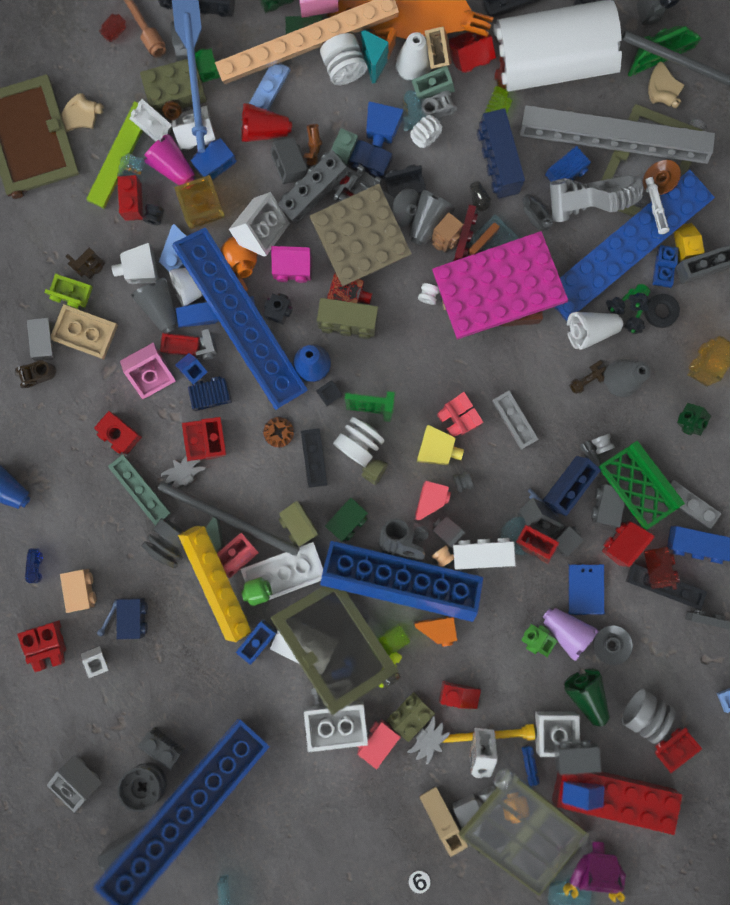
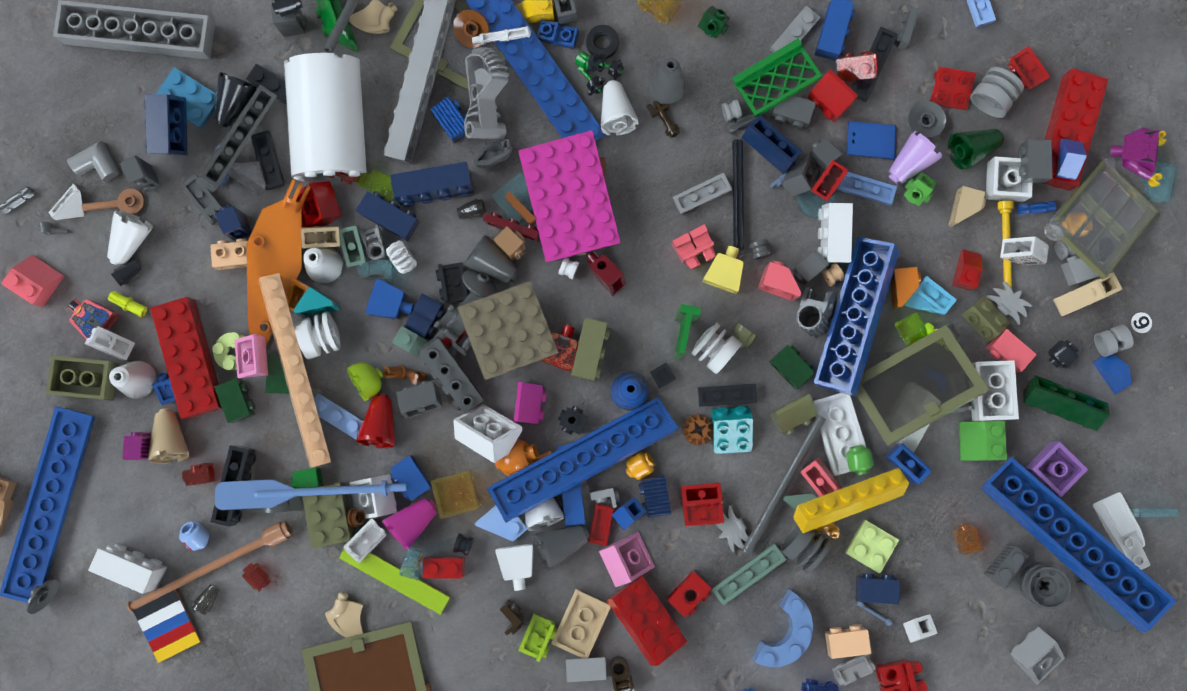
camera: 85 degrees left, 0 degrees up
(50, 591) = (845, 672): none -> light grey hinge
(69, 534) = (796, 639): none -> medium blue brick
(88, 392) = (646, 621): none -> red brick
(173, 611) = (871, 546): none -> yellowish green plate
(187, 569) = (830, 529): none -> light orange arm
(193, 702) = (961, 539): none -> clear orange brick
(204, 868) = (1122, 528): none -> white piece
(238, 376) = (640, 465): none -> light orange head
(260, 794) = (1056, 468): none -> medium lavender brick
(280, 464) = (732, 429): none -> teal bracket
(284, 718) = (982, 440): none -> bright green slope
(304, 108) = (366, 379): none -> lime cylinder
(329, 803) = (1066, 403): none -> dark green brick
(365, 853) = (1114, 372): none -> blue slope
(379, 798) = (1063, 354): none -> black head
(399, 855) = (1113, 340): none -> light grey wheel
(426, 329) = (606, 272): none -> dark red torso
(427, 657) = (930, 298): none -> medium azure wing
(466, 116) = (388, 215): none -> dark blue brick
(522, 456) = (738, 194): none -> black axle
(528, 691) = (966, 203): none -> tan slope
(535, 587) = (868, 188): none -> medium blue plate
(649, 670) = (952, 87): none -> red hinge

